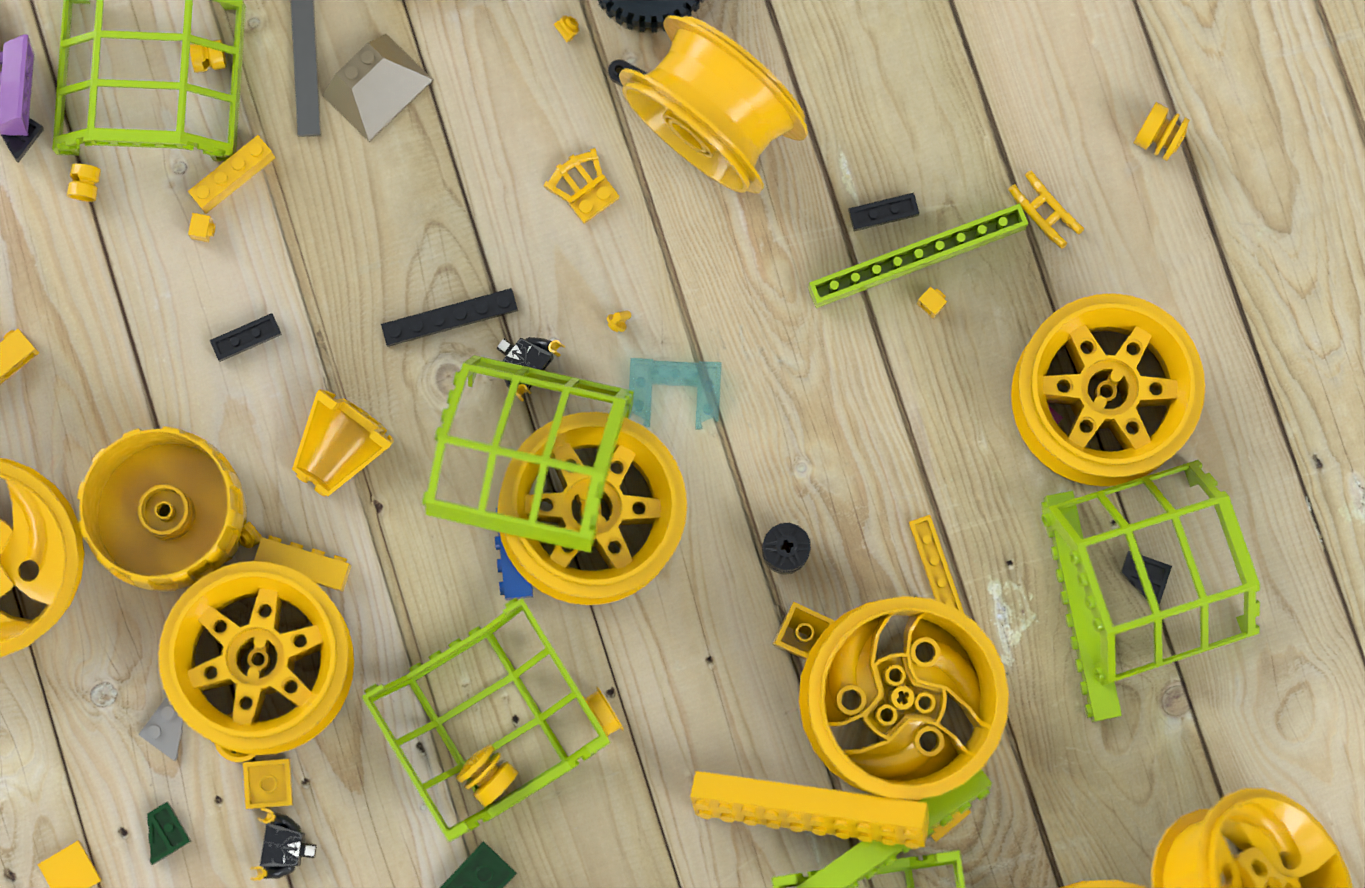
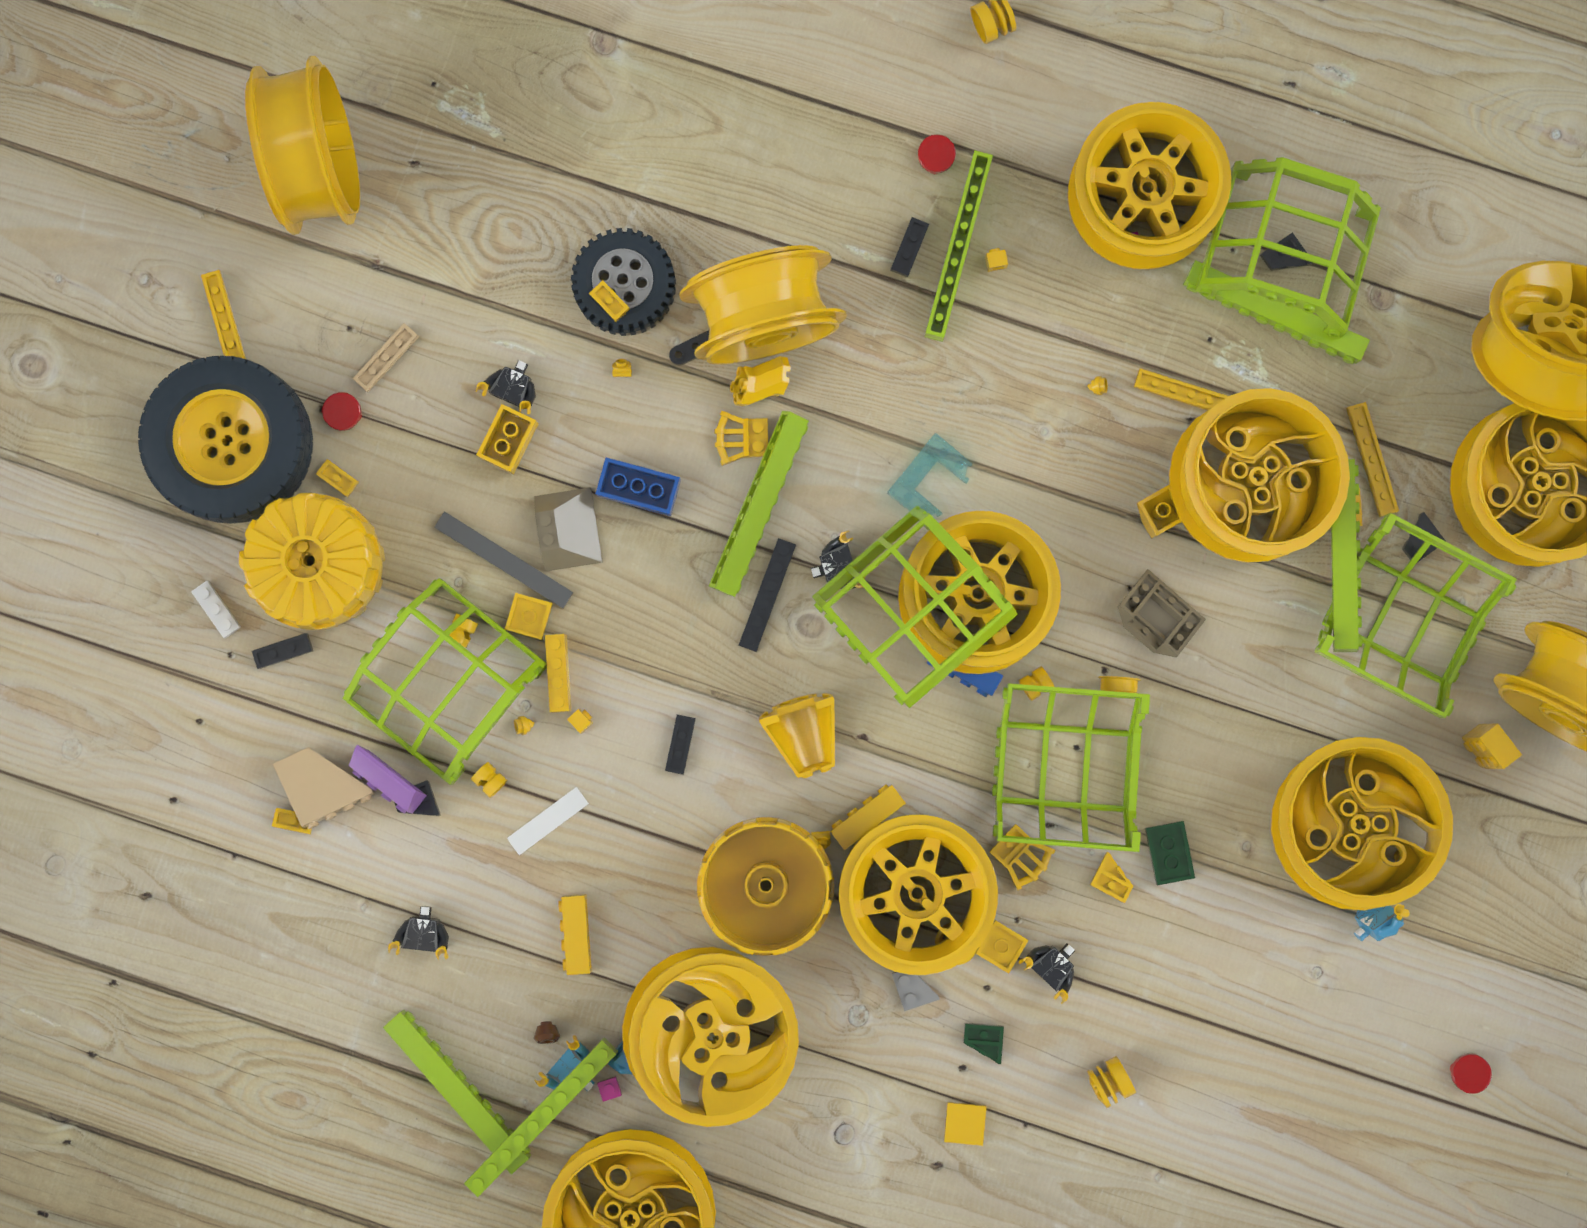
camera: 45 degrees left, 5 degrees up
(84, 266) = (547, 821): none -> white sticker
(159, 178) = (523, 725): none -> yellow plate
(267, 109) = (528, 616): none -> yellow plate
(364, 726) = (1009, 852): none -> yellow plate
(409, 844) = (1111, 879): none -> yellow wing
(464, 121) = (638, 486): none -> blue brick
(487, 775) = (1105, 793): yellow wheel -> none
(530, 245) = (759, 503): none -> lime brick
(554, 632) = (1039, 678): none -> yellow wheel
(617, 320) = (854, 484): yellow plate -> none
(648, 162) = (760, 381): none -> yellow brick
(700, 704) = (1159, 616): none -> dark tan slope
(780, 560) = (1084, 482): black wheel -> none
(810, 809) = (1288, 592): yellow brick -> none
(884, 487) = (1098, 385): none -> yellow plate
(992, 173) = (936, 154): none -> red tile
(1009, 805) = (1372, 459): none -> yellow tile
(1045, 196) = (996, 129): yellow piece -> none

